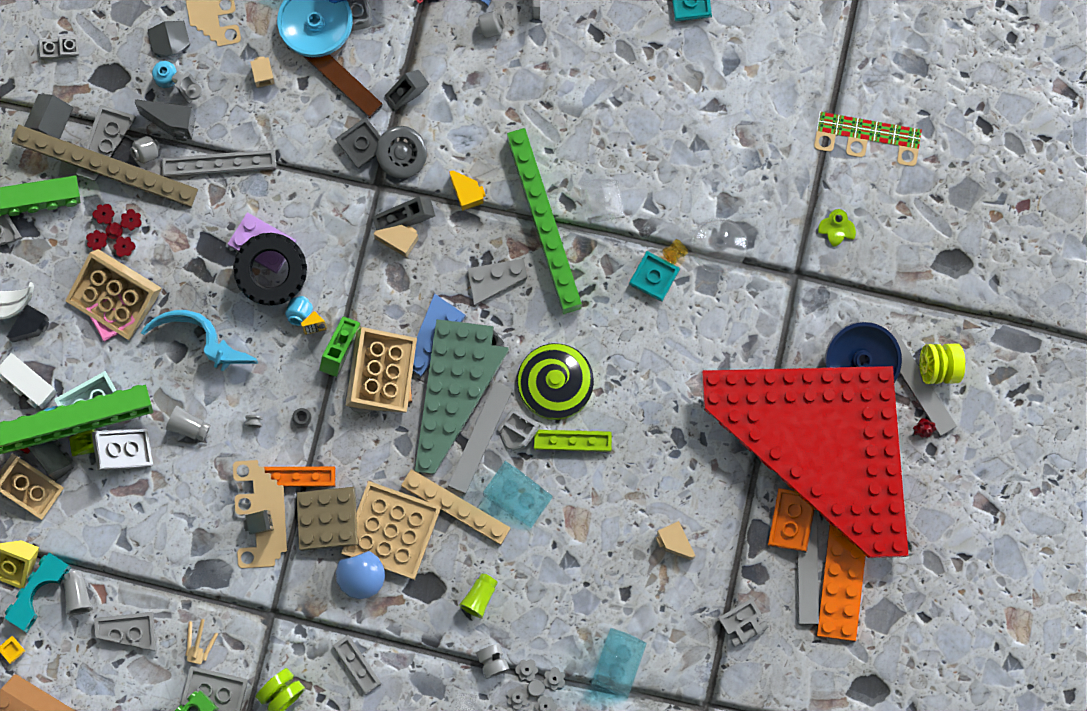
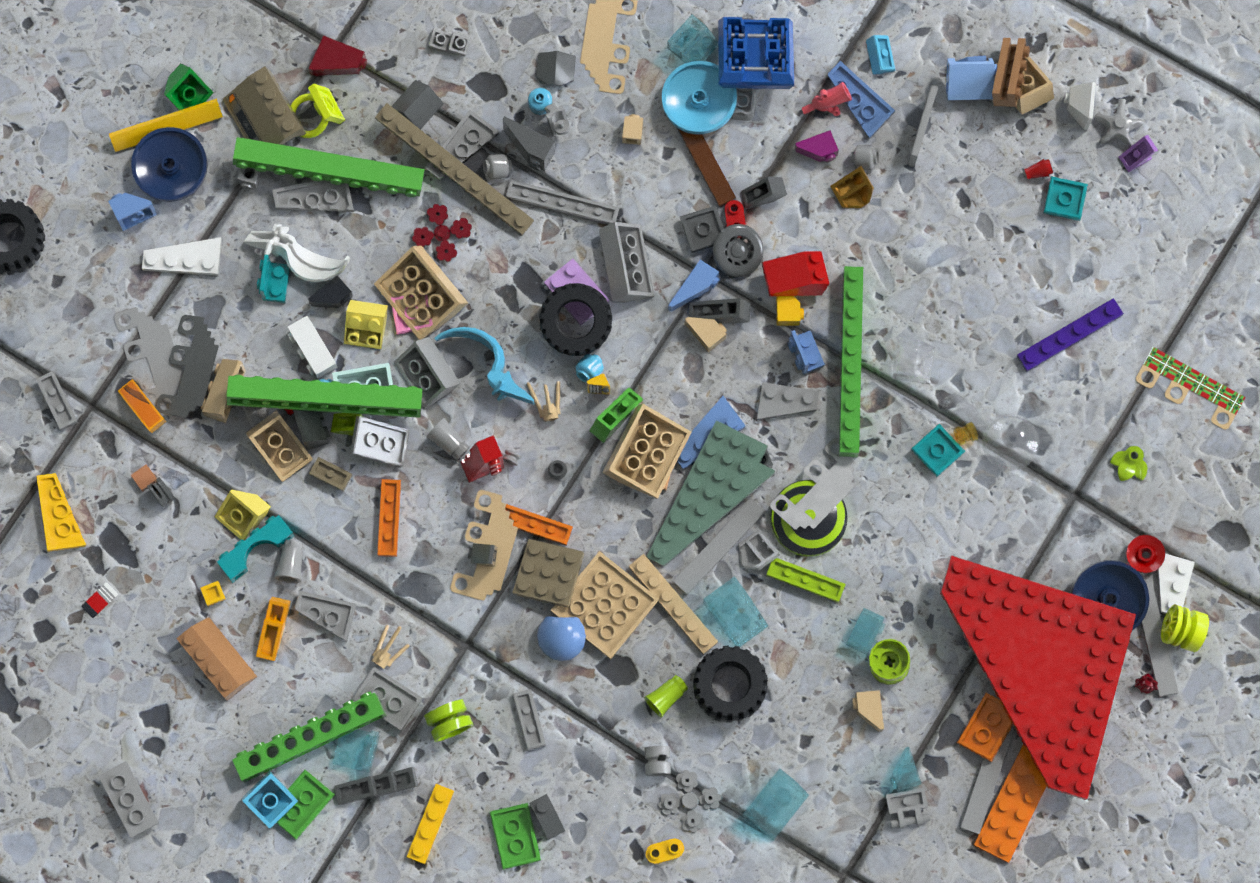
camera: 20 degrees right, 0 degrees up
(70, 342) = (365, 324): none -> light yellow slope
(81, 663) = (273, 628): none -> light orange slope
(86, 496) = (330, 474): none -> dark tan plate
(144, 365) = (427, 369): none -> light grey slope
(156, 518) = (389, 518): none -> orange plate
(228, 432) = (483, 460): none -> red wedge
(274, 365) = (549, 411): none -> tan plant
(299, 198) = (626, 262): none -> light grey slope
(373, 197) = (697, 284): none -> medium blue slope
(386, 122) = (734, 217): none -> red plate
(443, 30) = (819, 147): none -> magenta slope
(464, 156) = (796, 275): none -> red slope
(490, 58) = (853, 189): none -> pearl gold slope
(498, 225) = (806, 352): none -> medium blue bracket
(536, 537) = (737, 658): none -> black tyre
(563, 355) = (823, 497): none -> light grey piece
(646, 470) = (865, 631): none -> clear light blue brick
(678, 479) = (895, 652): none -> lime wheel
(729, 590) = (905, 773): none -> clear light blue slope
(739, 126) = (1070, 335): none -> dark purple plate
(883, 297) = (1147, 544): none -> red dish
(915, 322) = (1173, 581): none -> white wing

